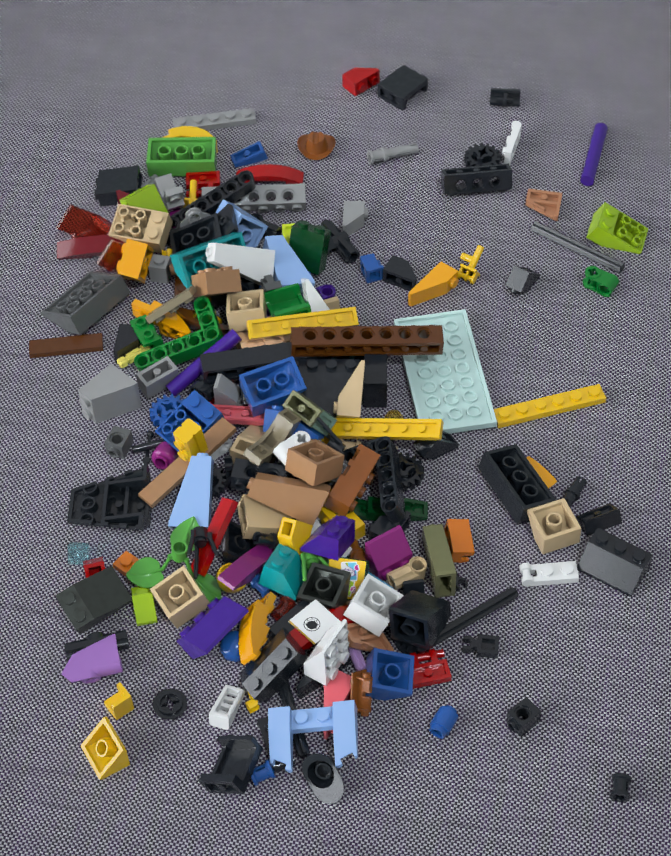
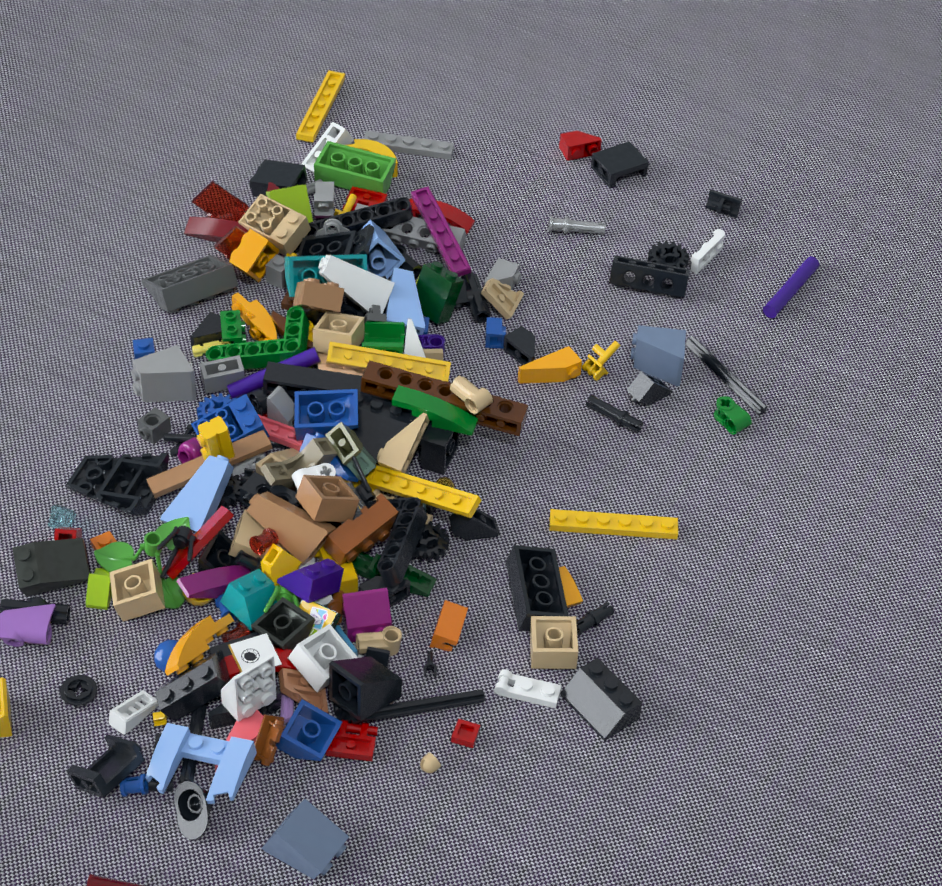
camera: 15 degrees right, 5 degrees down
(66, 345) = (150, 318): reddish brown tile -> none
(77, 377) = (143, 347): none -> blue brick
(120, 703) = (29, 674): yellow panel -> none
(121, 108) = (320, 106): none -> yellow plate
(149, 130) = (334, 133): none -> white slope
(171, 305) = (266, 307): dark tan plate -> none
(210, 626) = (152, 627): dark purple slope -> none
(249, 155) = (437, 186): blue slope -> none
(272, 519) = (263, 541): none -> clear red bush
(285, 191) = (440, 231): none -> magenta tile
(316, 145) = (499, 197): dark orange hat -> none
(363, 235) = (502, 297): none -> tan wing
(375, 355) = (439, 411): none -> green slope
(397, 333) = (474, 398): none -> tan piece
(432, 770) = (307, 841): none -> sand blue slope
(439, 560) = (416, 639): olive slope -> none
(443, 721) = (342, 797): blue brick -> none
(449, 383) = (517, 473): light aqua plate -> none
(485, 645) = (422, 738): black plate -> none
(500, 666) = (429, 763): none -> tan hinge
(505, 309) = (621, 417): none -> black pin
(517, 629) = (465, 733): none -> red plate
(519, 244) = (659, 352): none -> sand blue slope
(523, 709) = (428, 811): black brick -> none
(544, 202) = (713, 320): nougat wing -> none
(601, 517) = (610, 652): black slope -> none
(616, 230) = (776, 370): lime slope -> none

